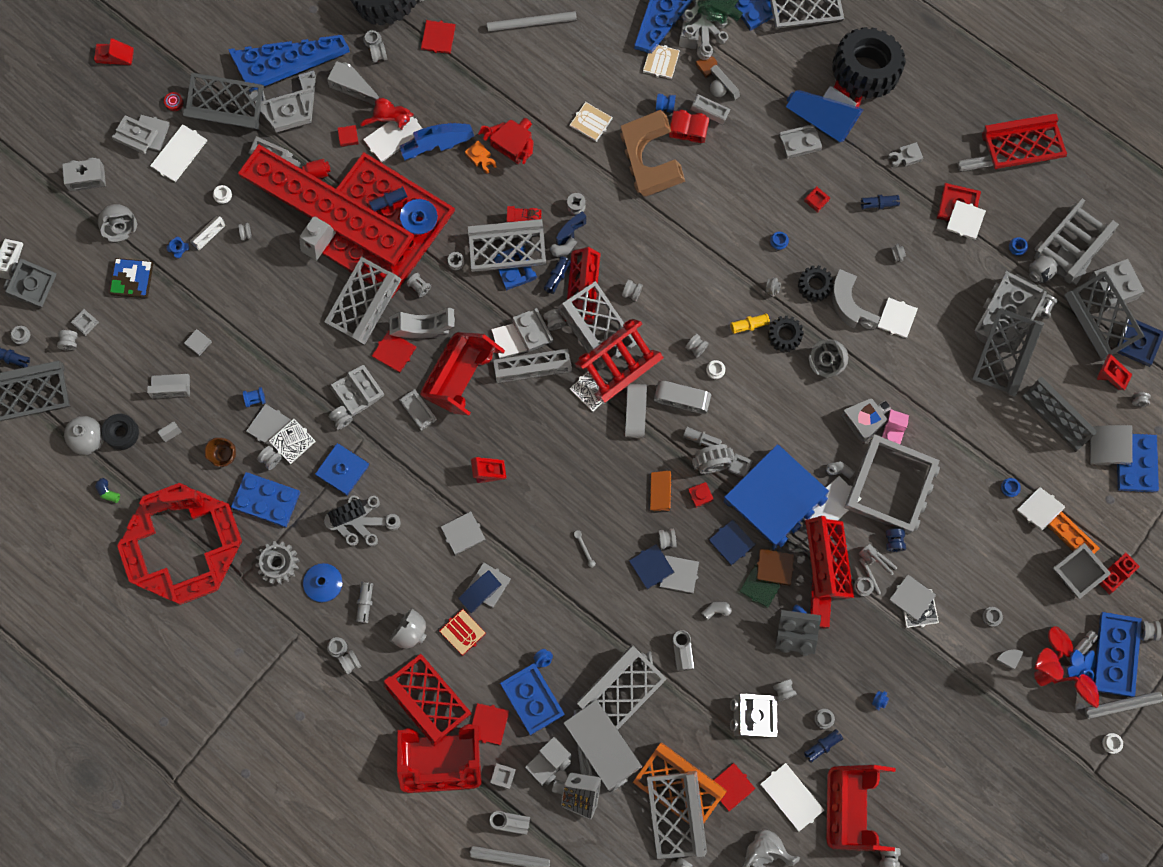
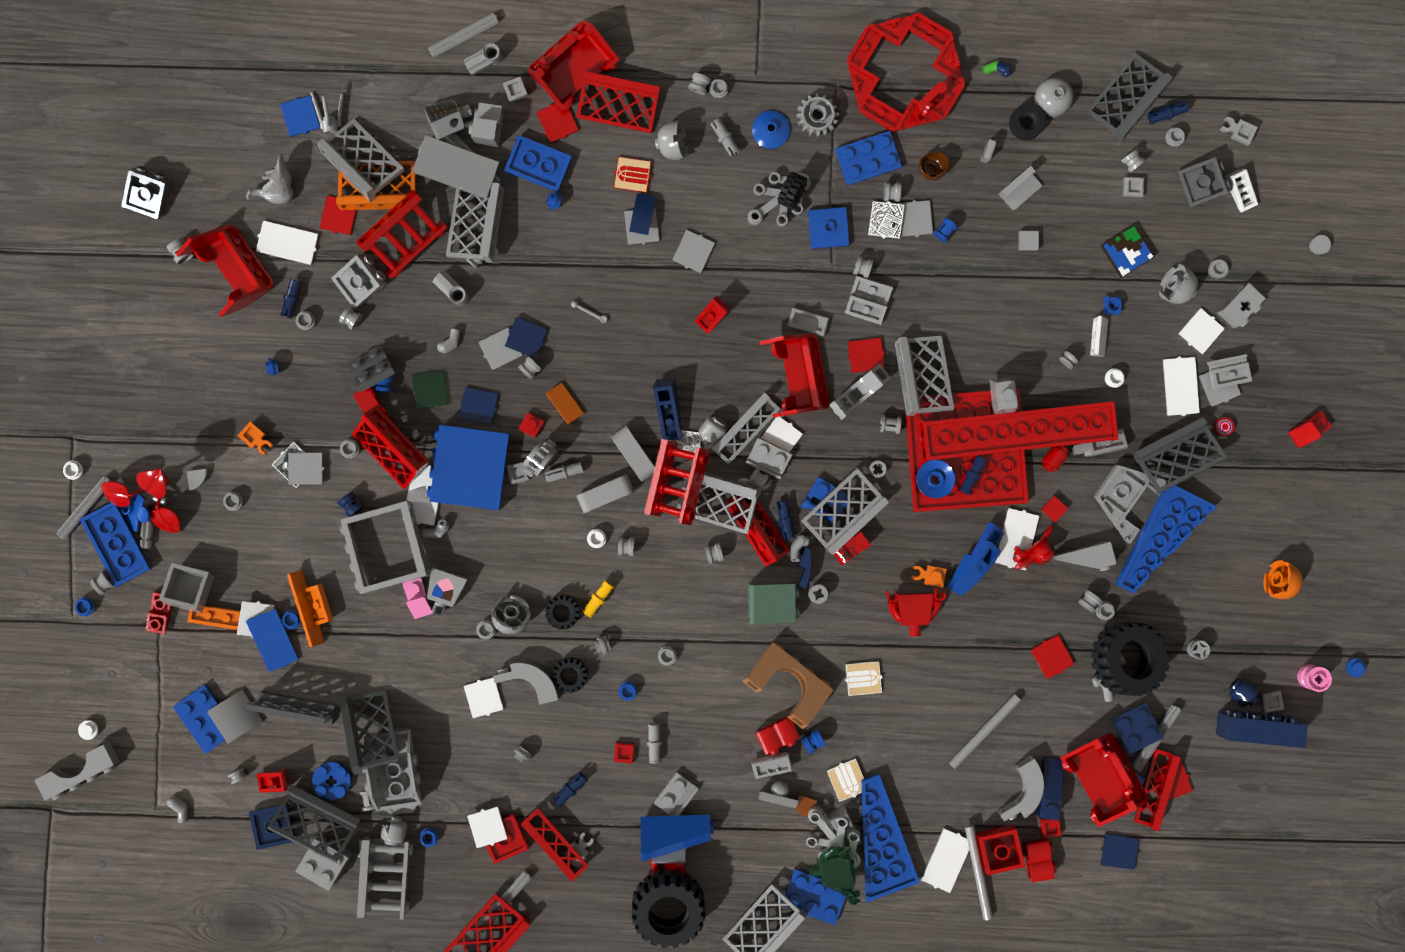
camera: 145 degrees right, 15 degrees up
(76, 215) = (1218, 269): none -> light grey tile
(128, 181) = (1201, 331): none -> white piece
(559, 381) = (712, 430): none -> light grey head
(580, 424) = (668, 408): none -> dark blue slope
(617, 221) = (772, 603): none -> sand green slope
(694, 739) = (383, 229): none -> red fence
(728, 243) = (667, 655): none -> light grey plate
(775, 567) = (429, 411): reddish brown piece -> none
(788, 188) = (654, 742): none -> light grey pin
(857, 365) = (485, 629): none -> light grey plate
(870, 555) = (362, 476): light grey plant -> none
(930, 183) = (549, 849): none -> red fence
(937, 655) = (253, 436): none -> orange plate
(986, 484) = (311, 605): none -> orange bracket
(1038, 482) = (272, 640): none -> blue piece
(1074, 335) = (323, 788): none -> blue plate

